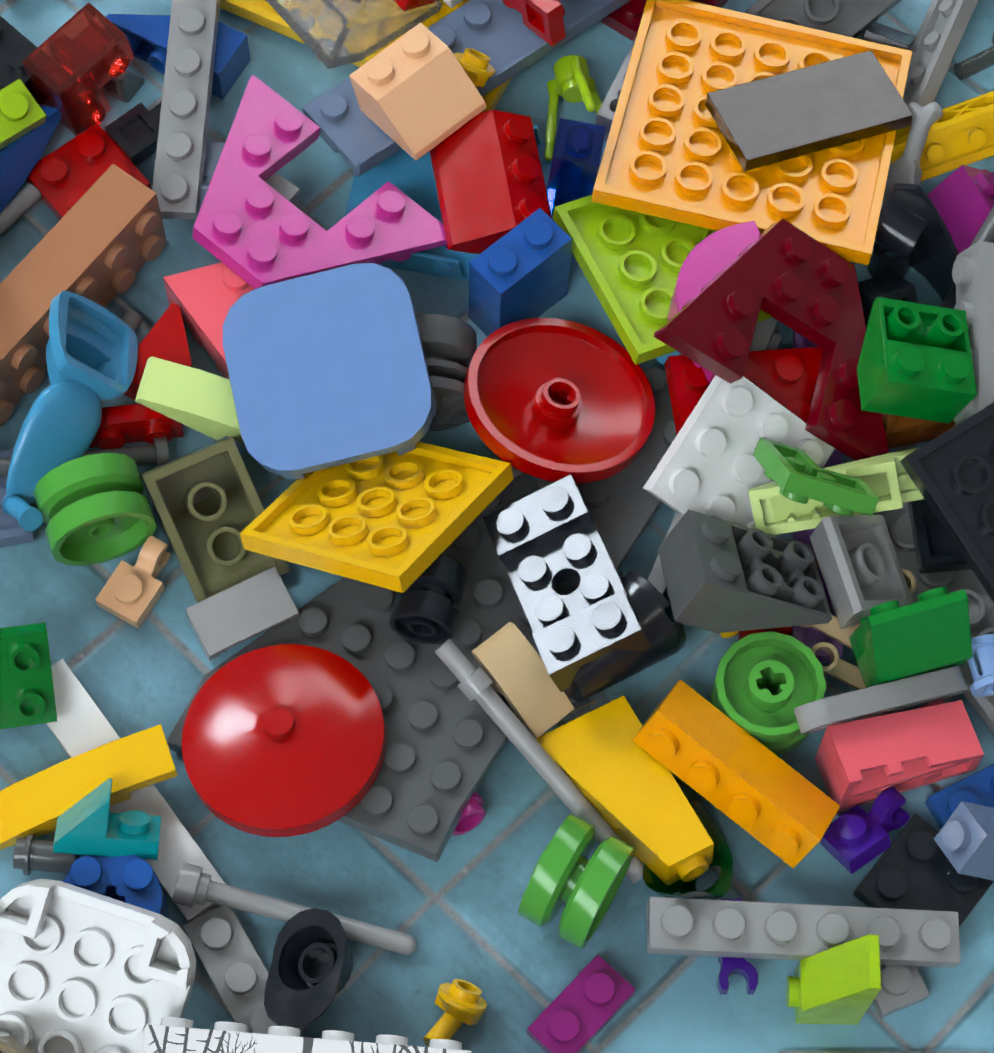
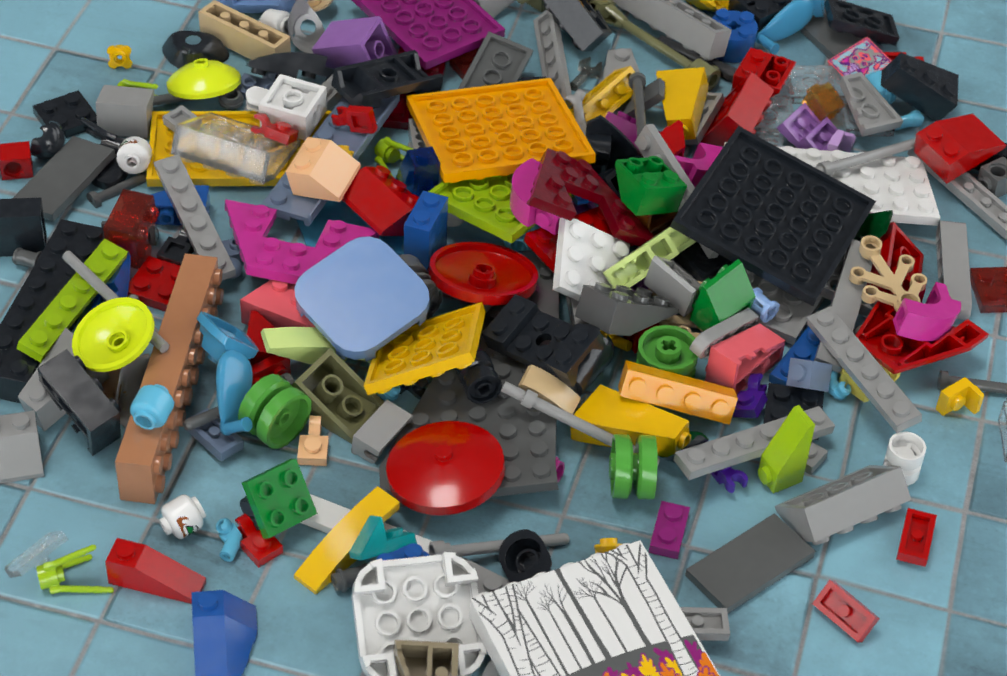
camera: 30 degrees left, 20 degrees down
(803, 479) = (633, 247): bright green plate -> none
(808, 110) = (521, 111): tile -> none

